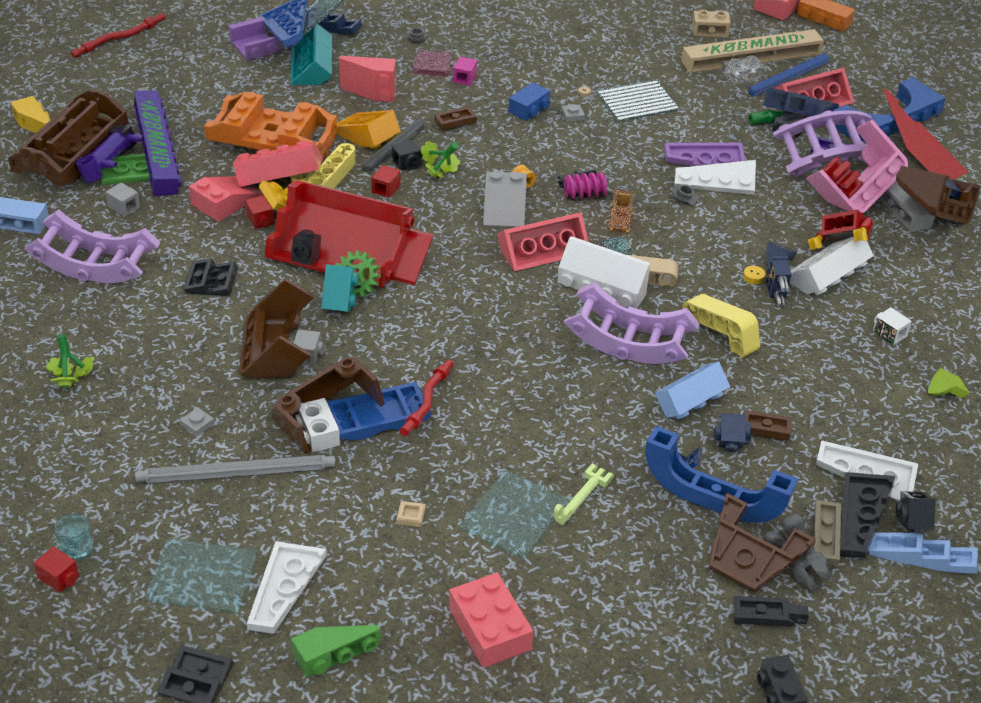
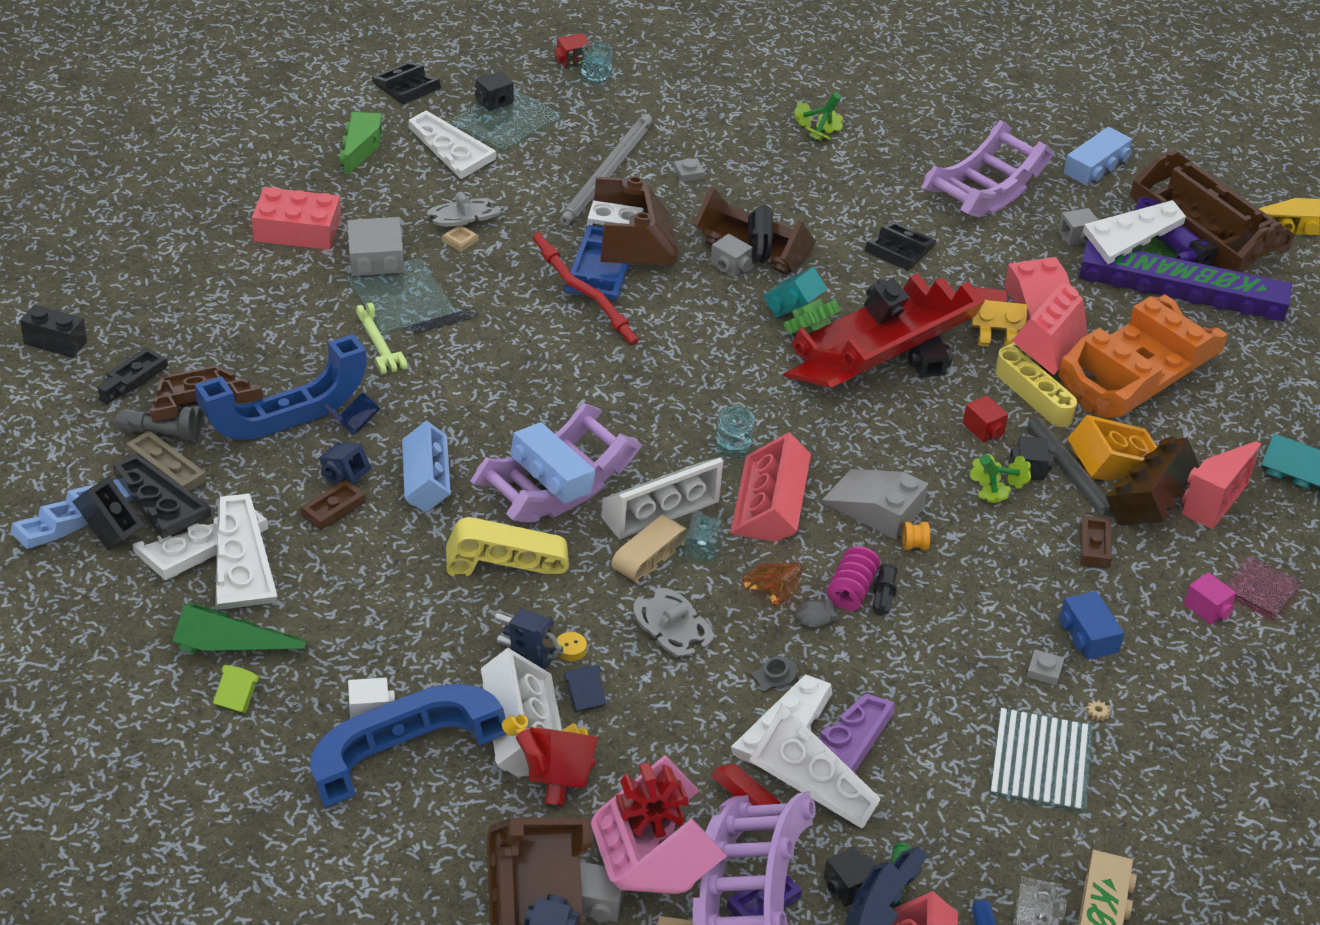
camera: 120 degrees right, 0 degrees up
(131, 158) = (1125, 231): none -> white wing
(179, 587) = (494, 91): none -> black brick
(277, 328) = (761, 233): none -> black arm
(379, 524) = (463, 211): none -> light grey shield
(406, 98) = (1153, 483): none -> dark brown wedge
(481, 546) = (375, 246): none -> light grey brick
(509, 270) = (735, 431): none -> clear light blue wheel
(521, 468) = (442, 318): none -> dark blue piece
(643, 314) = (552, 462): none -> light blue brick
(692, 242) = (673, 621): none -> light grey shield
(753, 144) = (807, 764): none -> white wing
(776, 176) = (740, 784): none -> red tile
(866, 430) = (242, 563): none -> white wing
(886, 296) = (397, 722): none -> blue arch
(922, 415) = (214, 630): none -> green wedge

